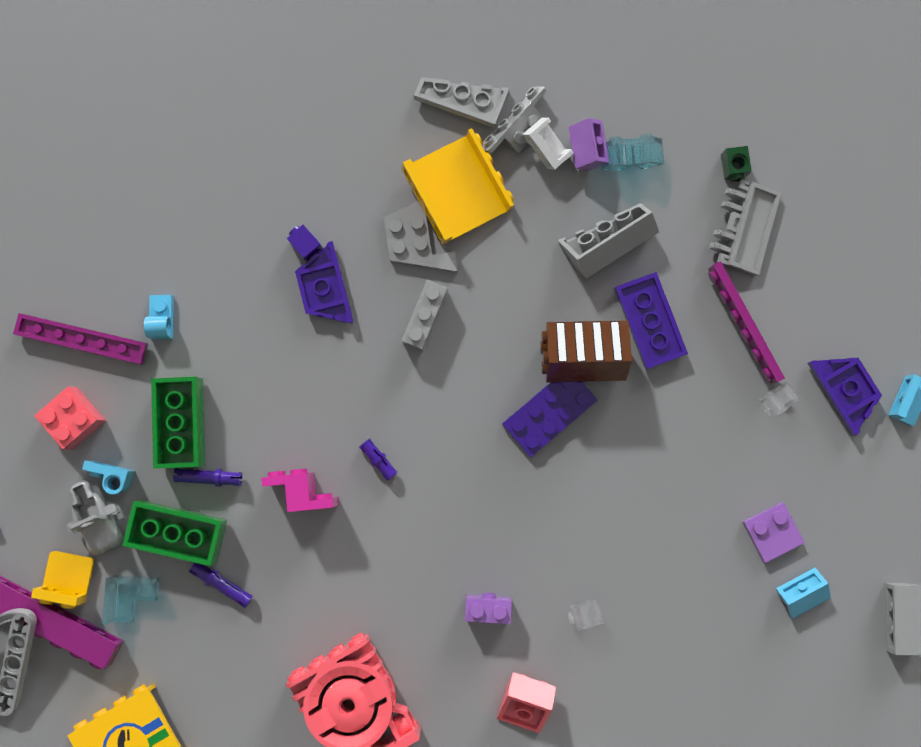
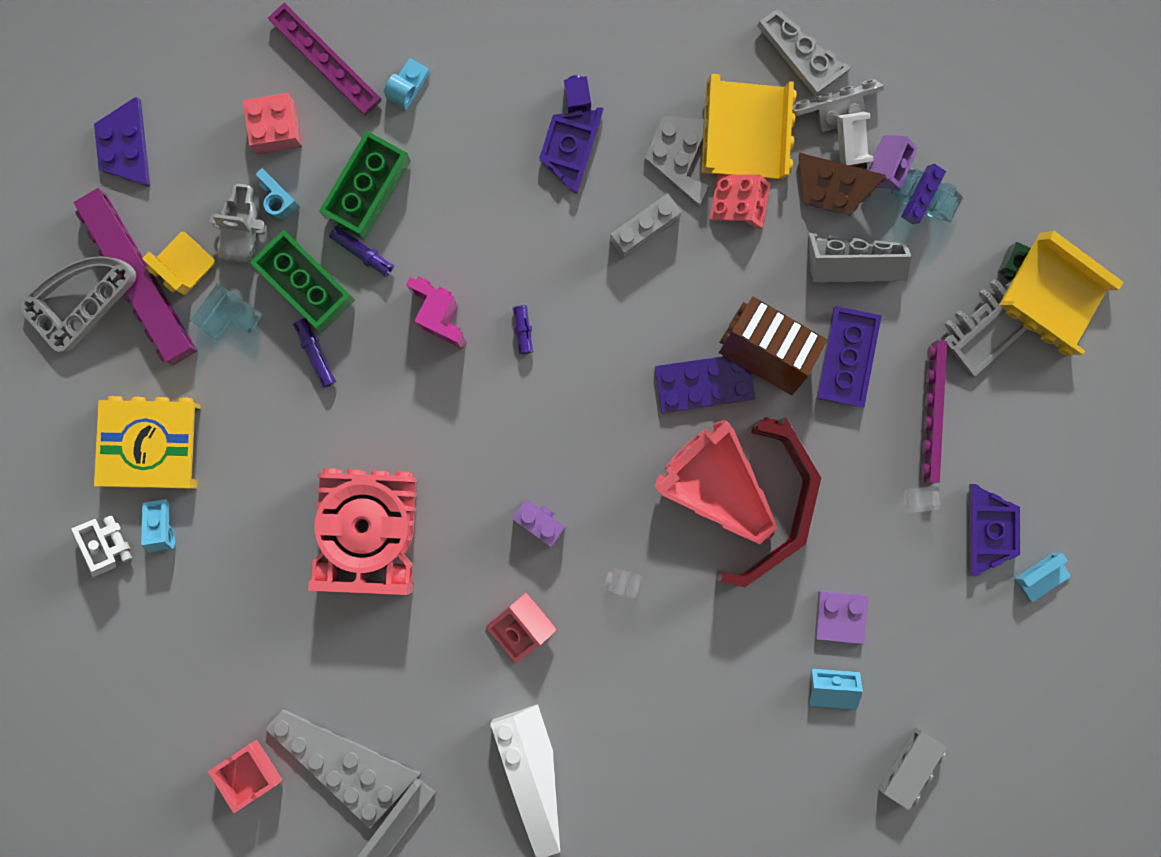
camera: 30 degrees right, 0 degrees up
(487, 247) = (741, 199): none -> coral bracket
(556, 189) = (835, 184): none -> reddish brown wing
(611, 489) = (719, 484): none -> coral cone
(630, 156) = (923, 194): none -> dark purple piece
(695, 474) = (811, 480): none -> dark red panel
(782, 168) = (1058, 291): none -> yellow panel

